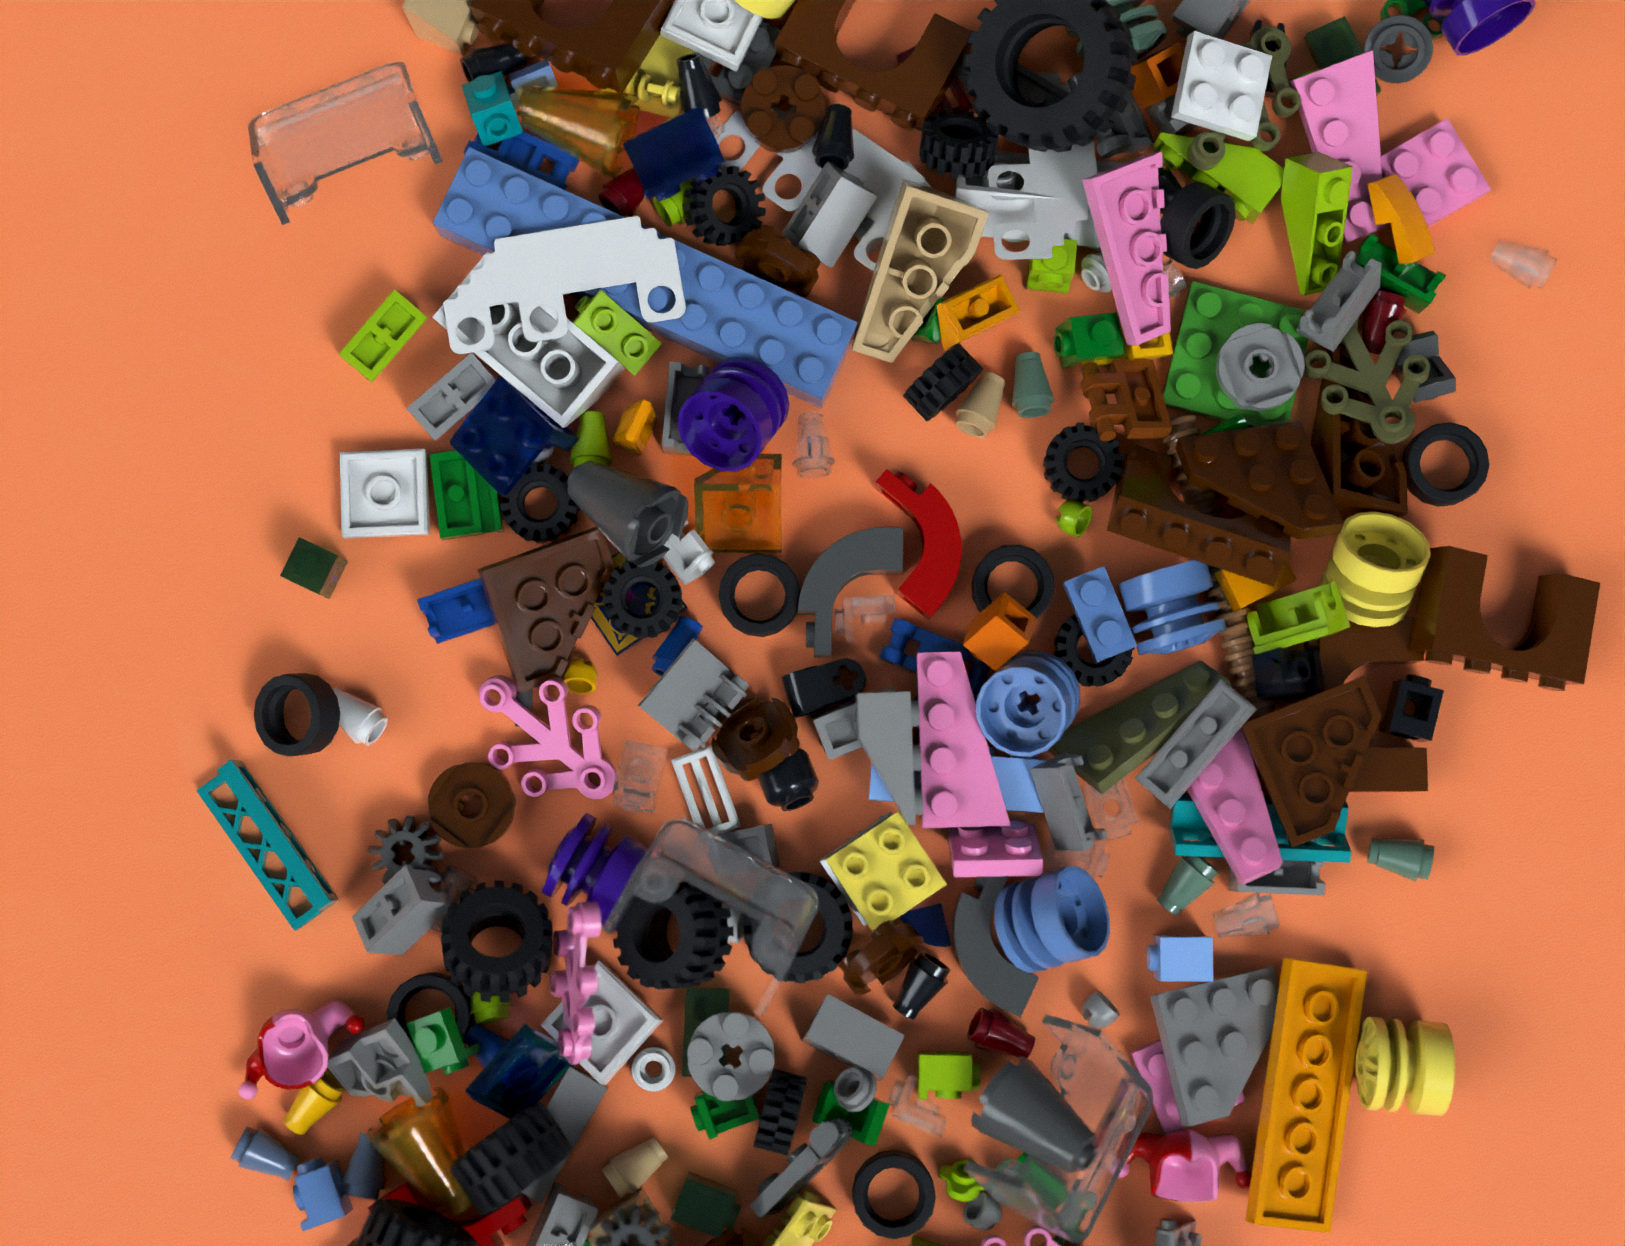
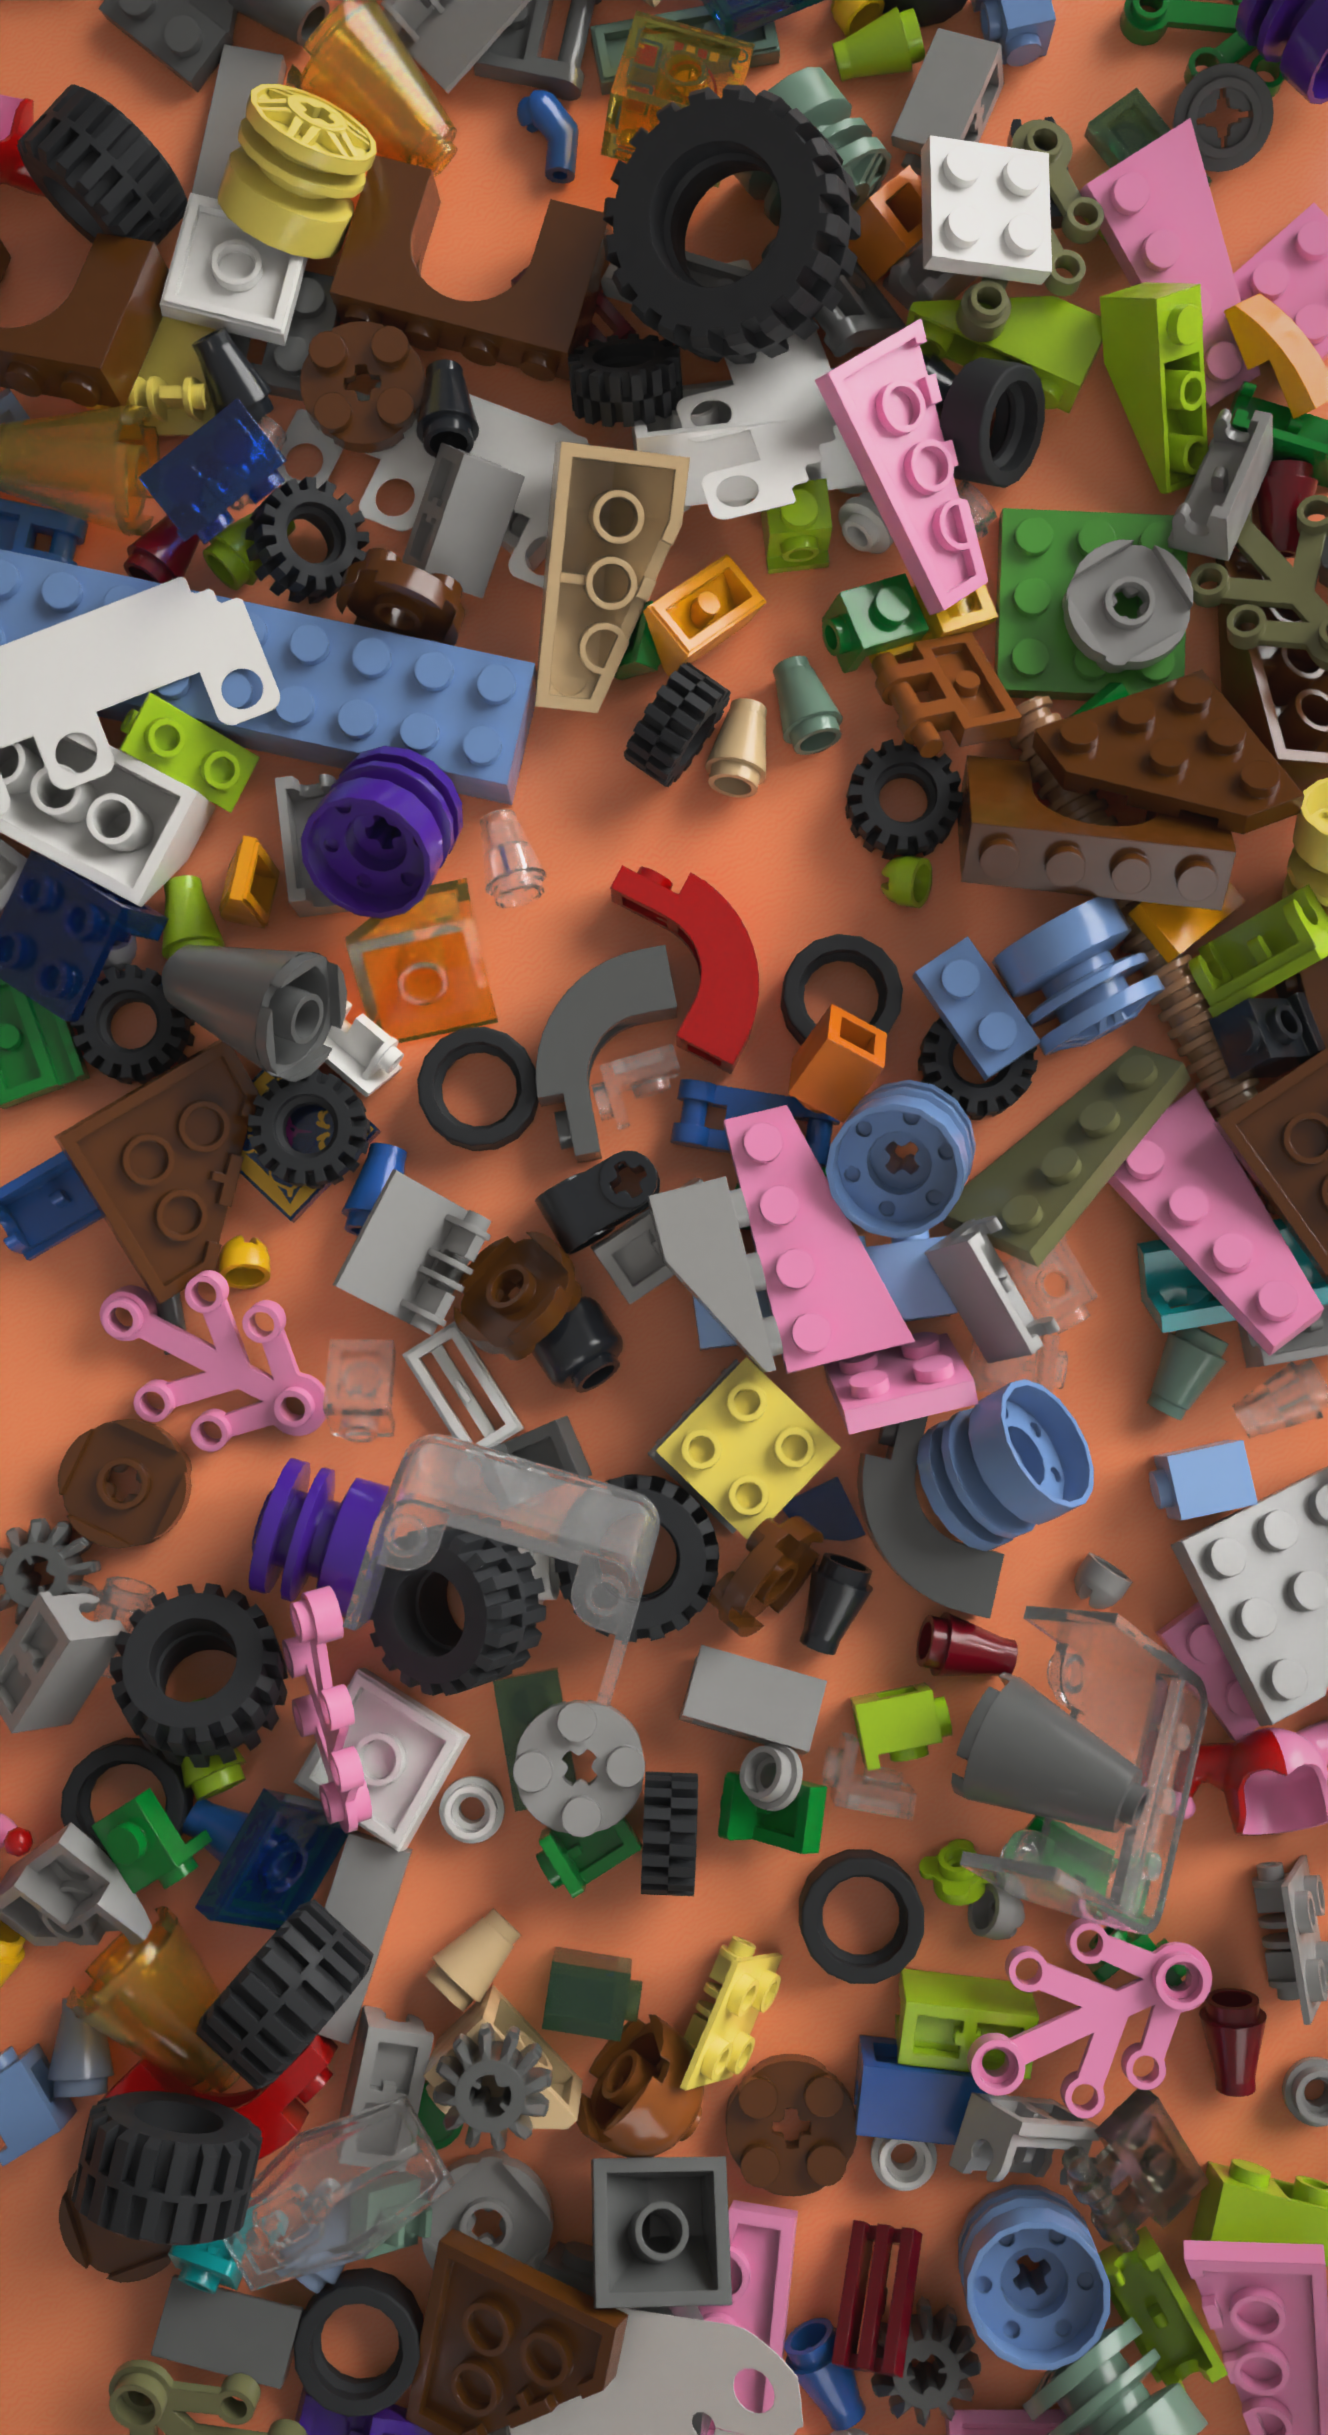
camera: 10 degrees left, 0 degrees up
(804, 1165) = (721, 1904): dark grey hinge -> none
(1195, 743) = (1157, 1163): light grey tile -> none

